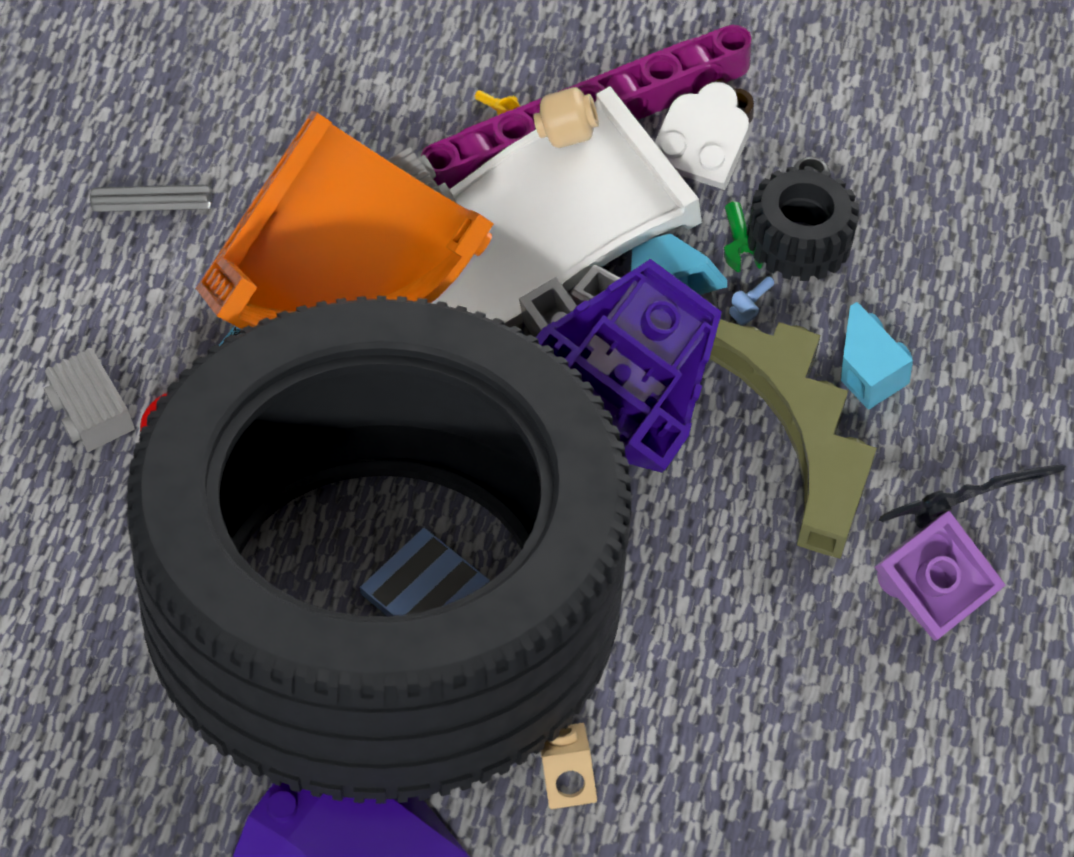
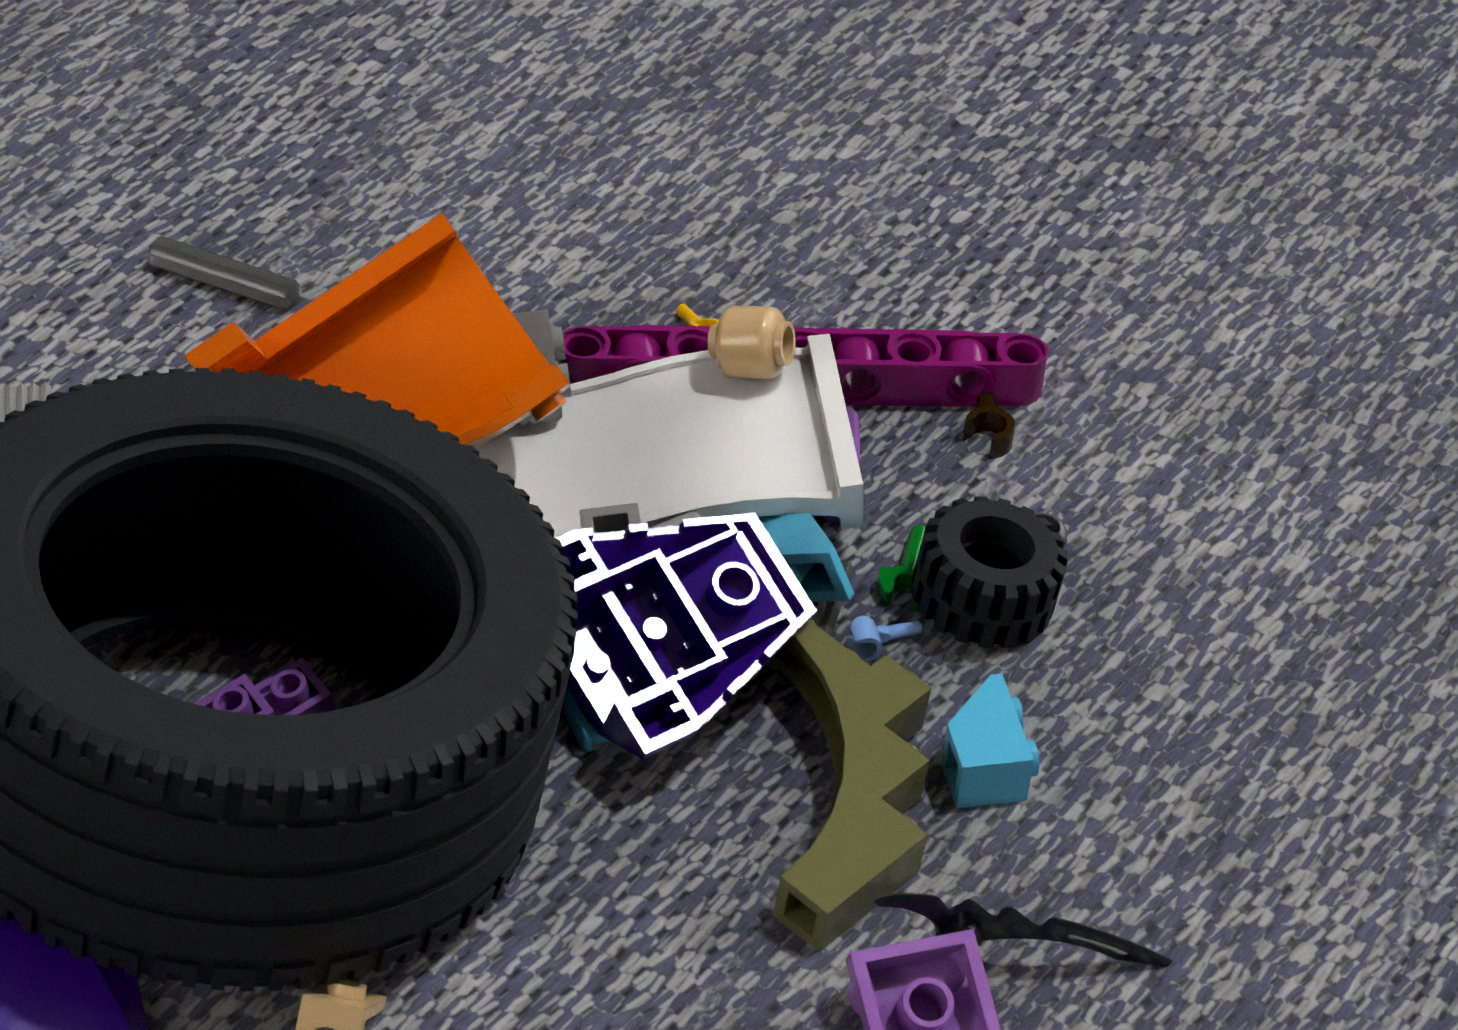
camera: 15 degrees right, 15 degrees down
(379, 534) = (286, 692): none -> medium lavender slope
(705, 134) = (928, 443): white plate -> none

